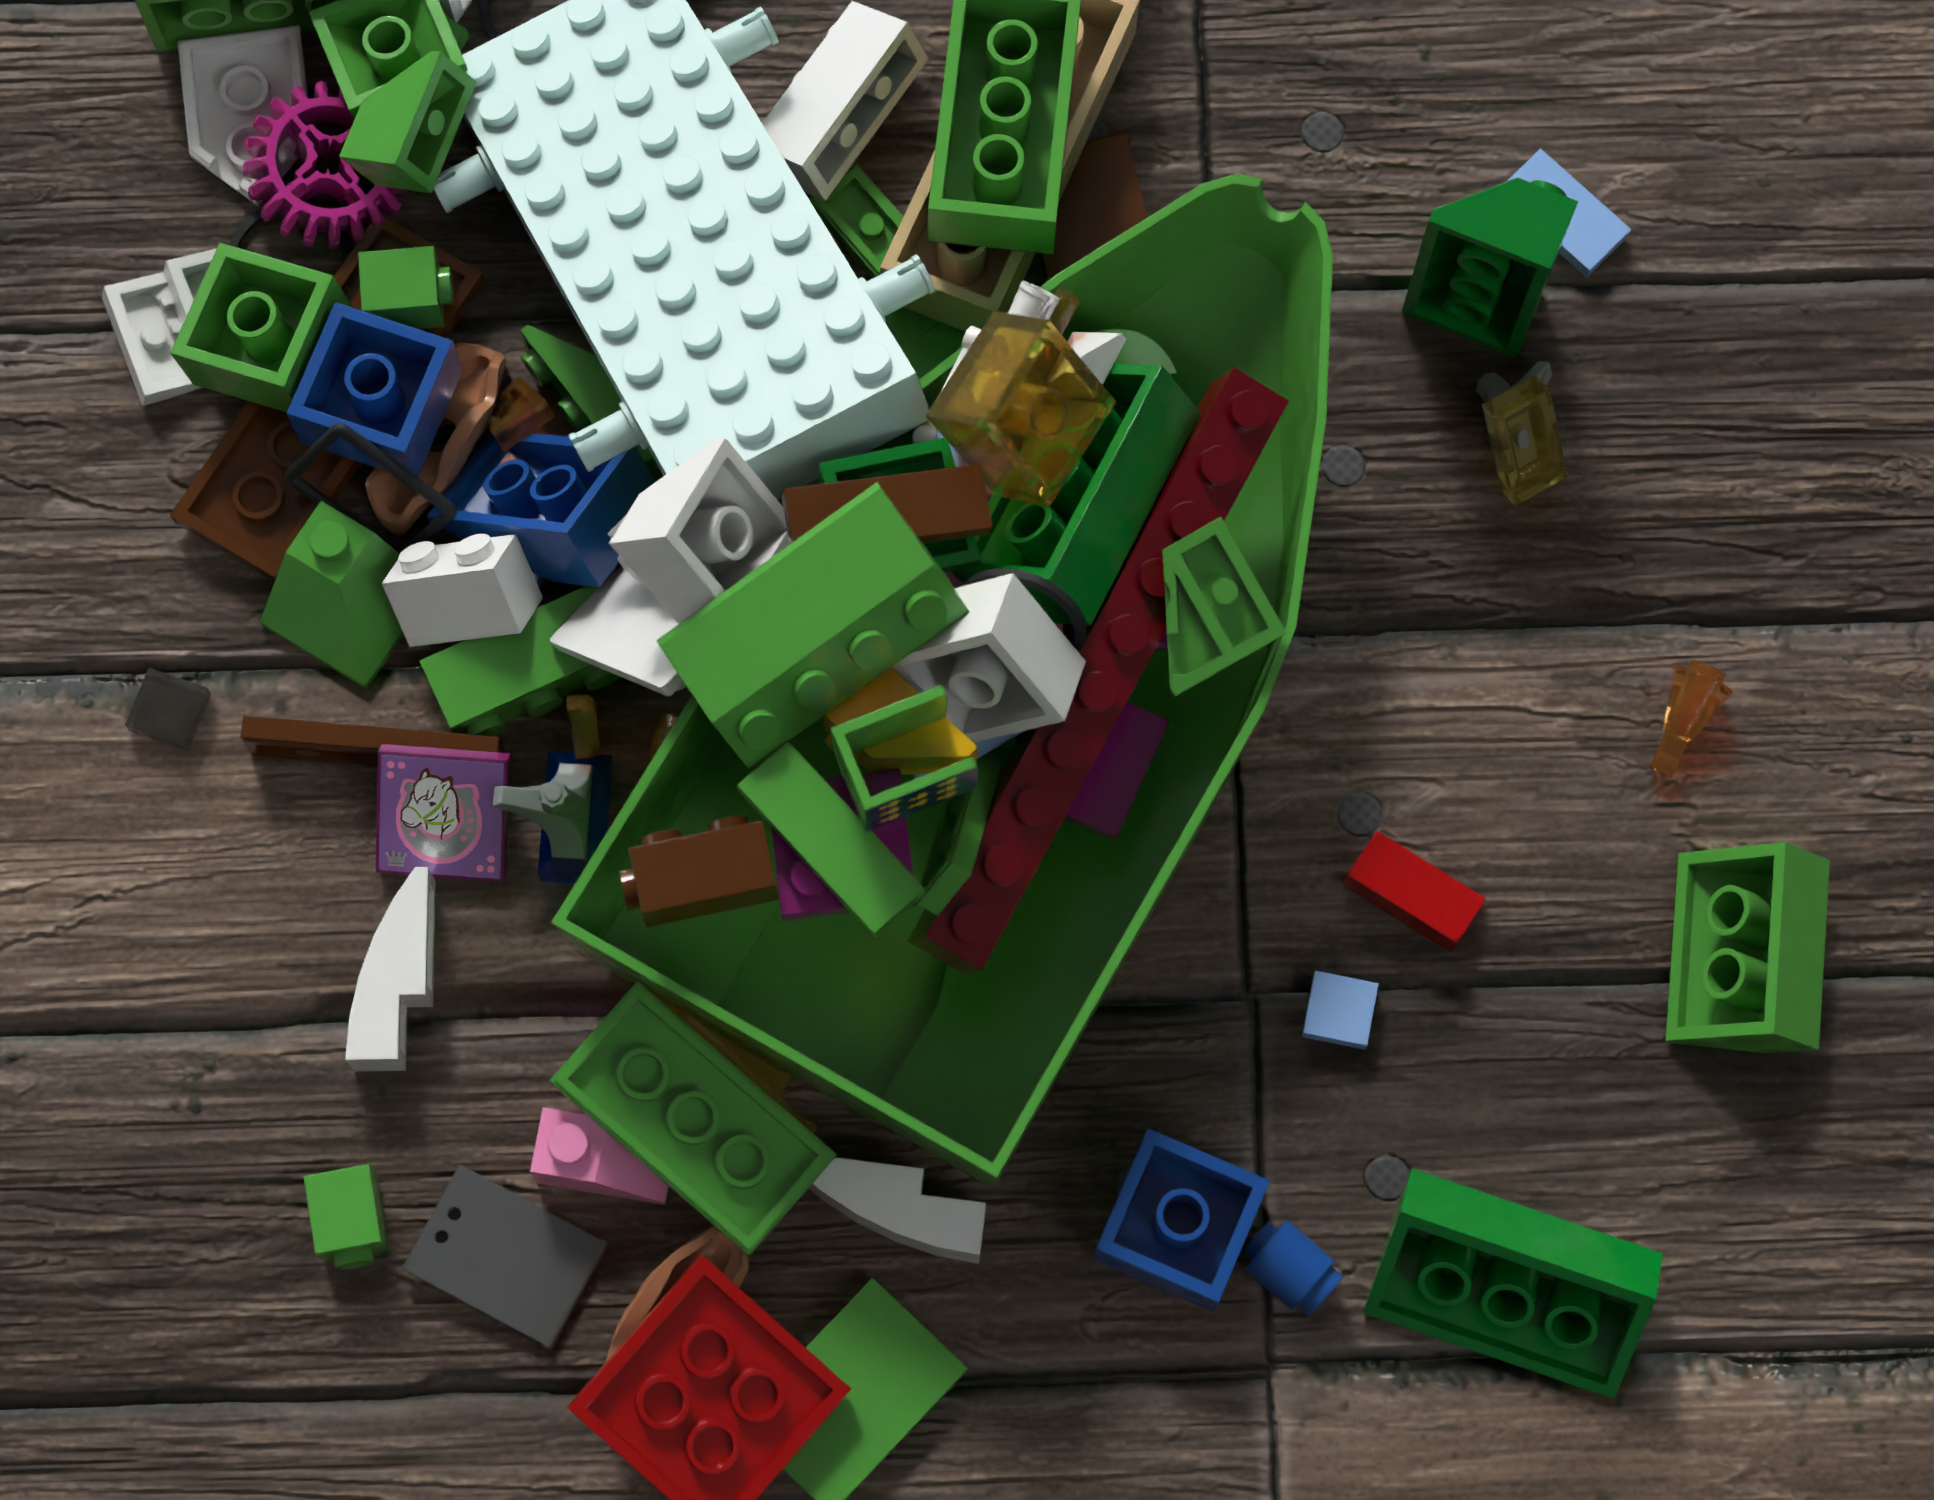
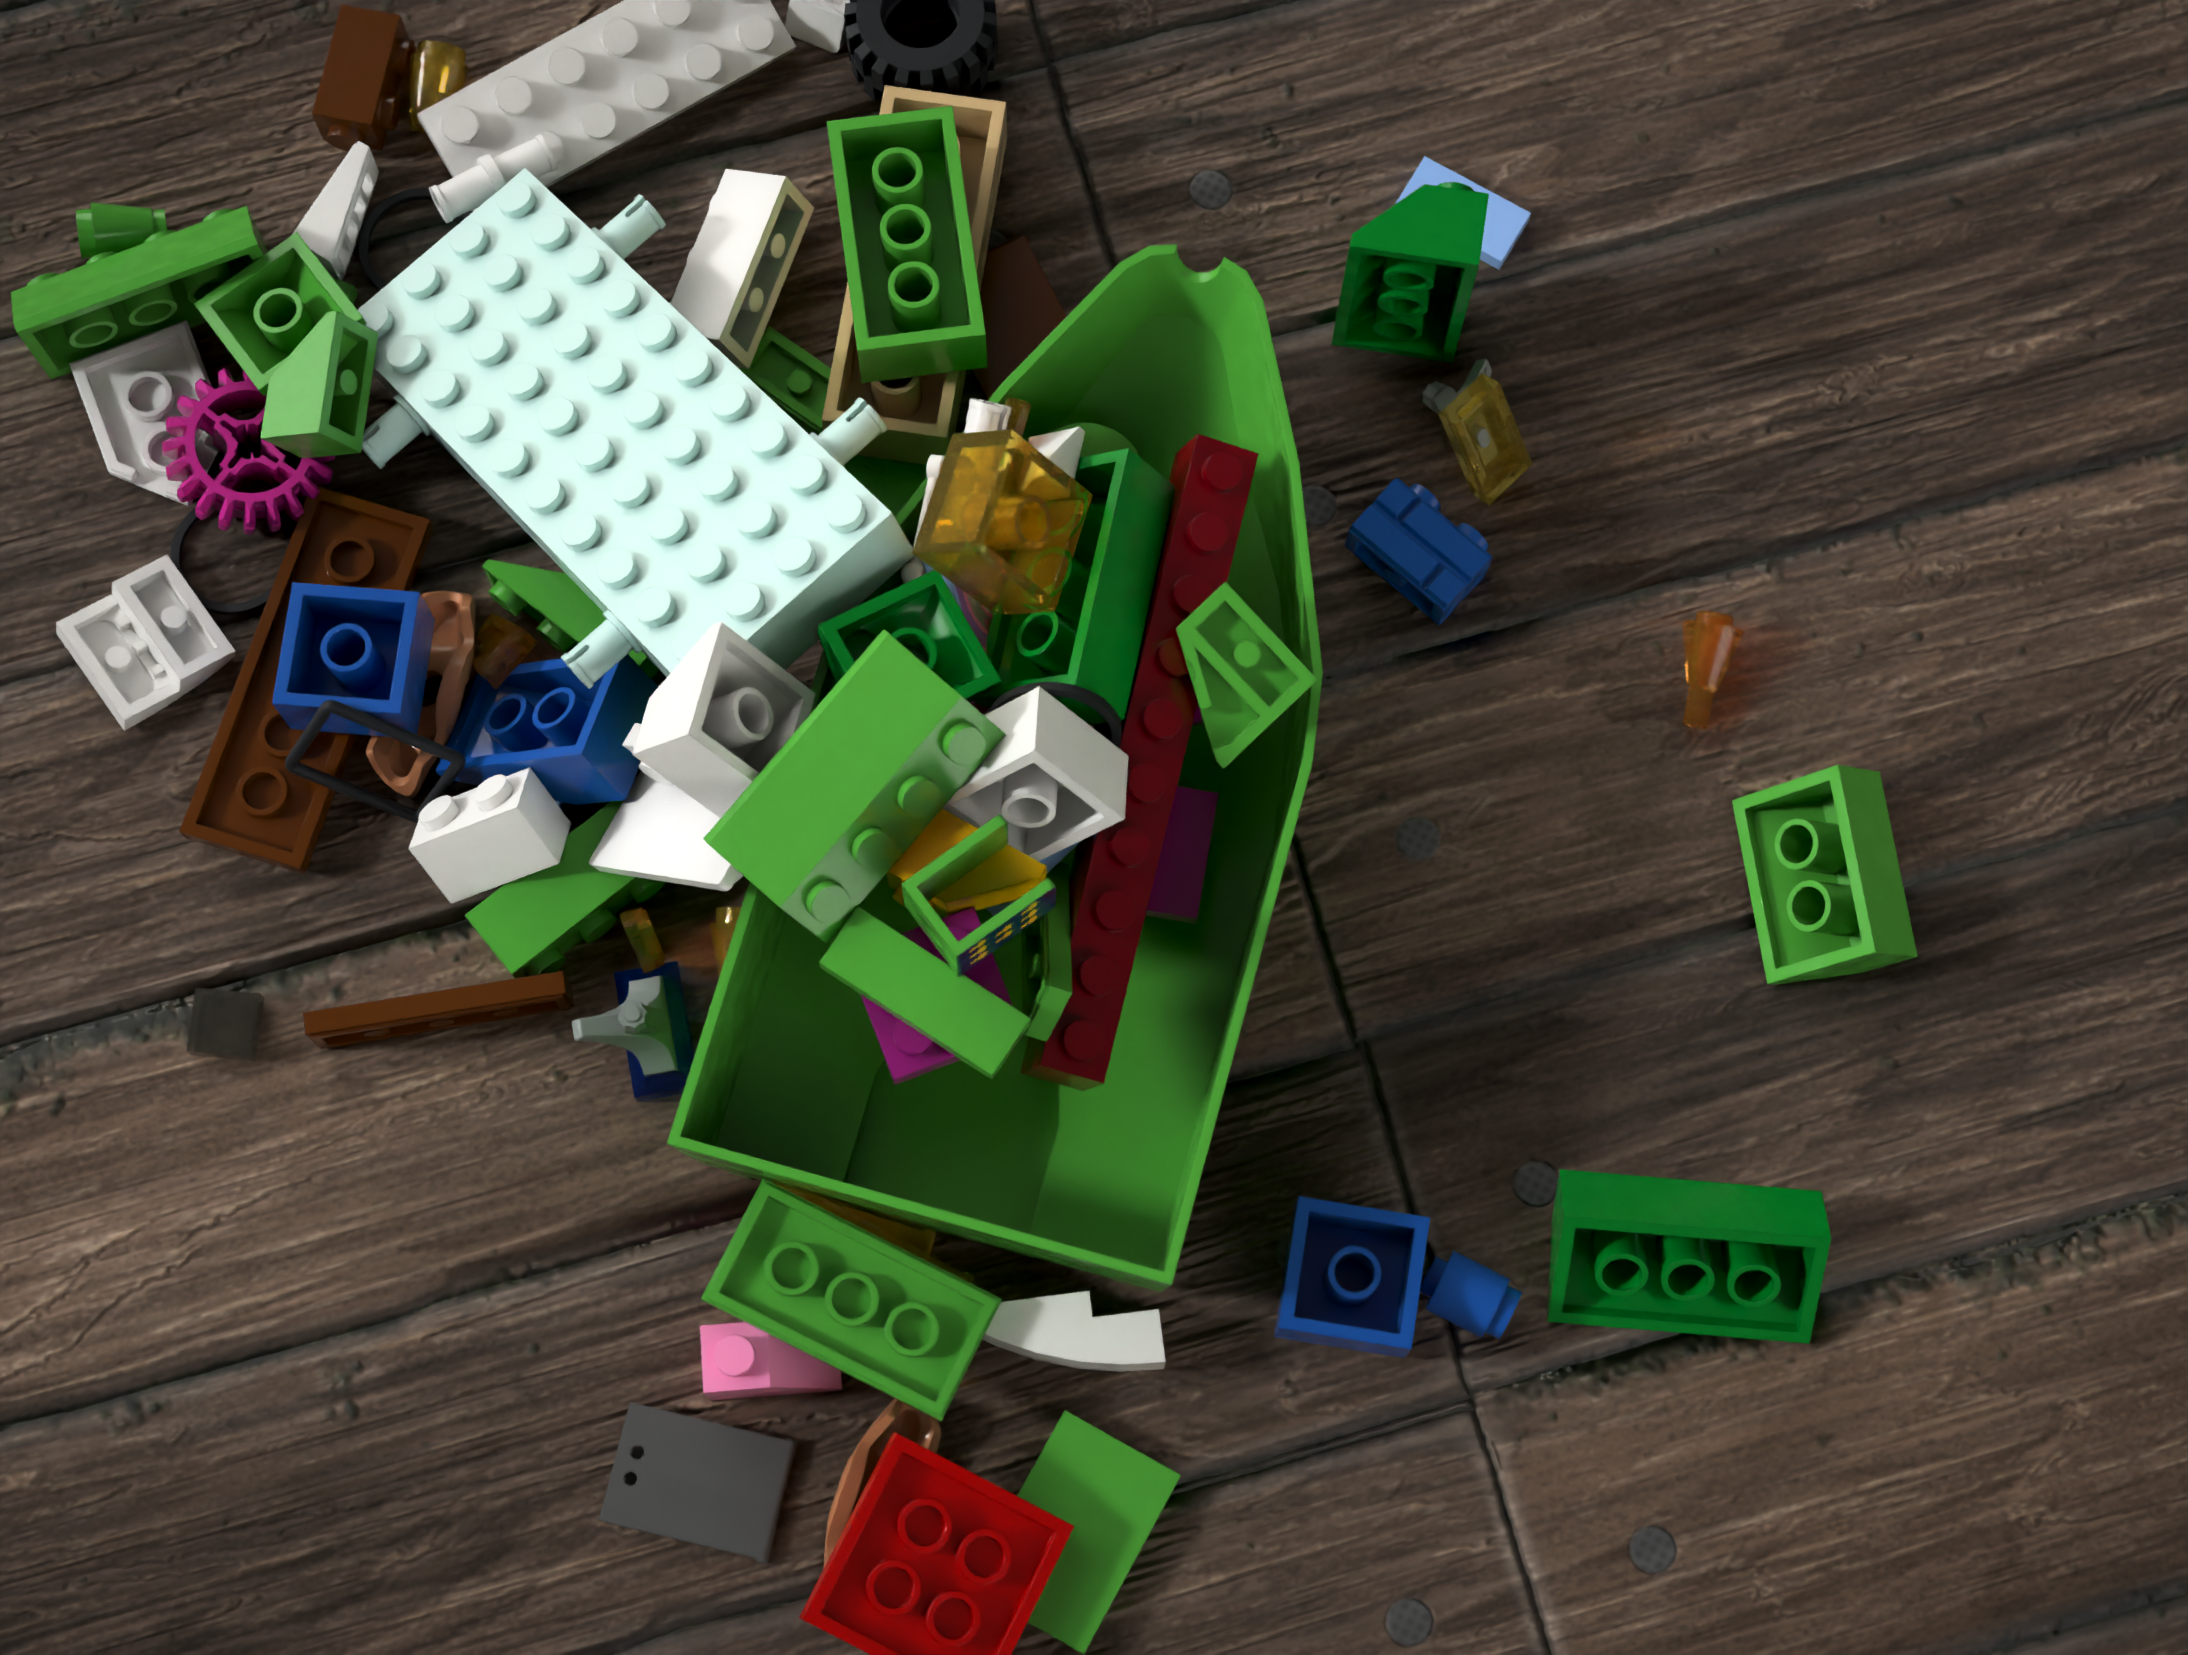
camera: 15 degrees left, 0 degrees up
(255, 326) = (218, 625): bright green brick -> none
(333, 596) = (361, 872): bright green slope -> none
(346, 1216) = (531, 1482): bright green brick -> none
(394, 977) = (517, 1234): white slope -> none
(406, 286) = (358, 549): bright green brick -> none
(441, 812) = (523, 1059): tile -> none
(700, 872) = (804, 1057): reddish brown brick -> none
(933, 502) = (942, 636): reddish brown tile -> none
(1340, 1010) = (1449, 1033): light blue tile -> none
(1414, 891) = (1490, 900): red slope -> none
(1434, 532) = (1419, 549): none -> blue brick

